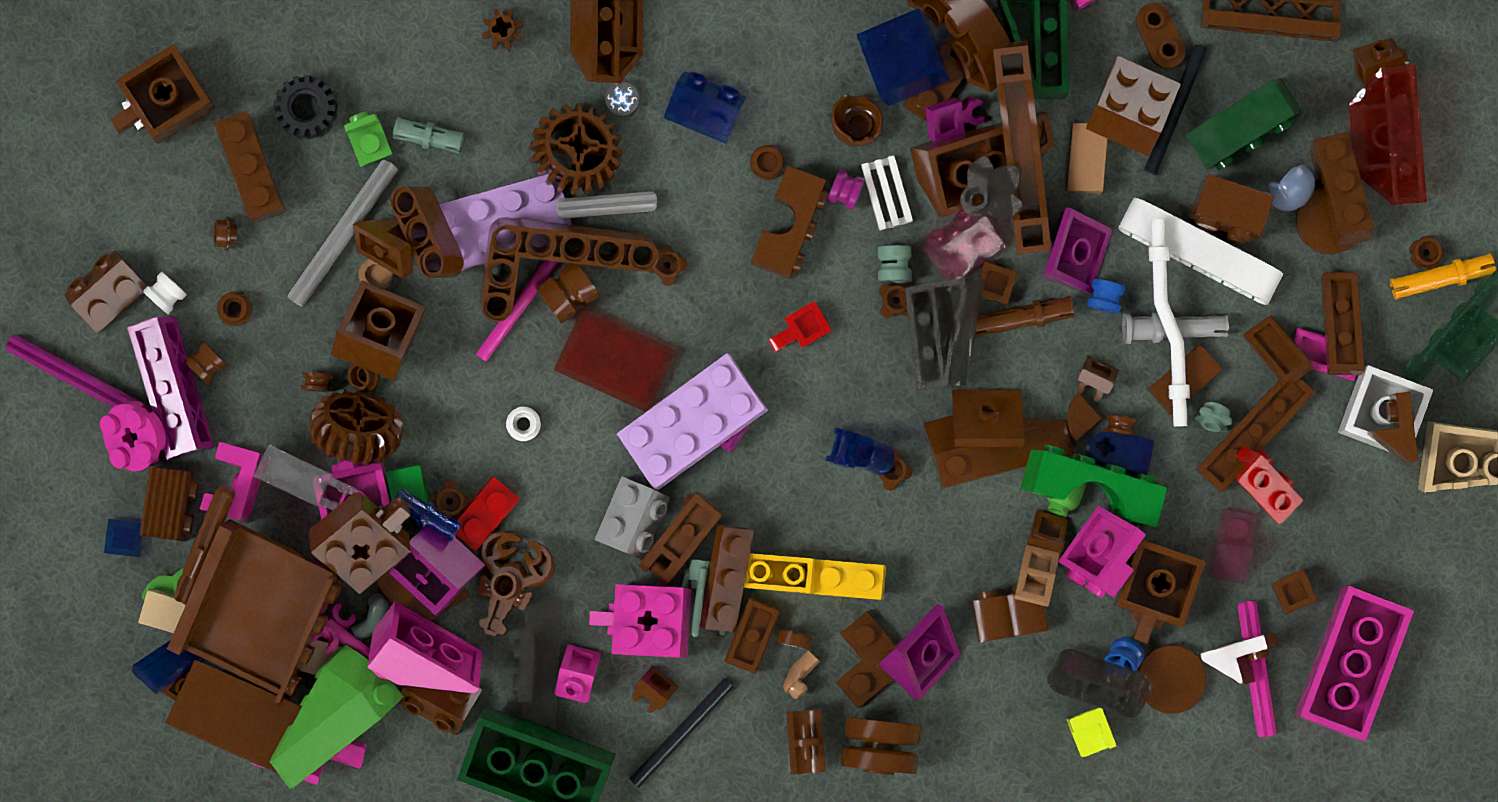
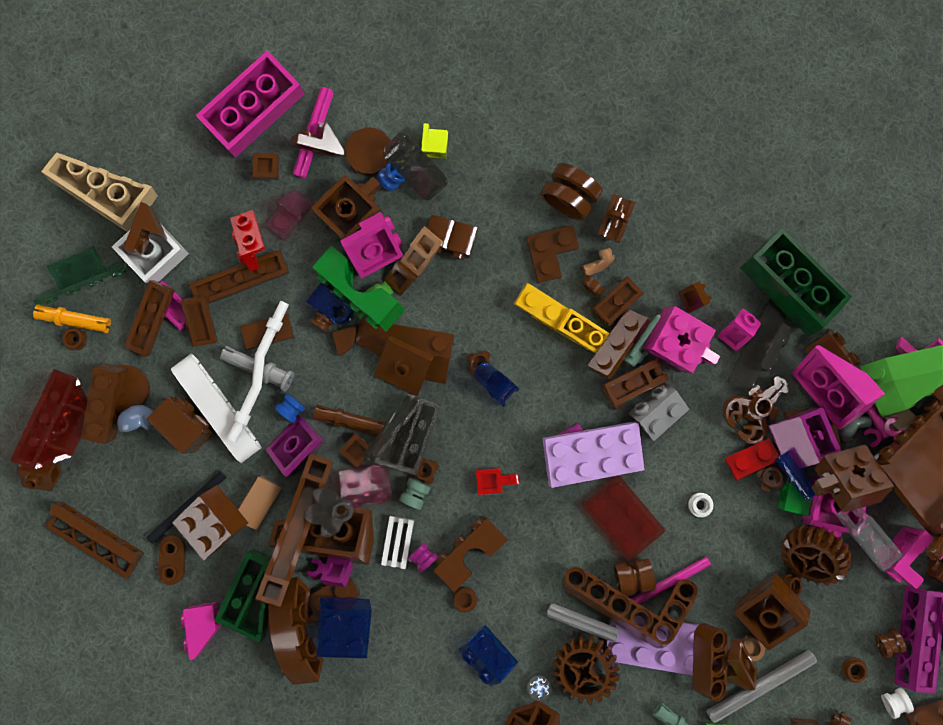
camera: 150 degrees left, 0 degrees up
(317, 382) = (823, 596): reddish brown bush -> none
(677, 264) = (554, 560): reddish brown plate -> none
(681, 732) = (690, 262): black bar -> none
(861, 130) = (392, 591): reddish brown hair -> none
(923, 654) = (517, 238): magenta slope -> none
(1097, 375) = (321, 360): reddish brown tile -> none
(1214, 417) = (260, 299): sand green plate -> none
(1244, 124) = (146, 475): dark green wedge -> none

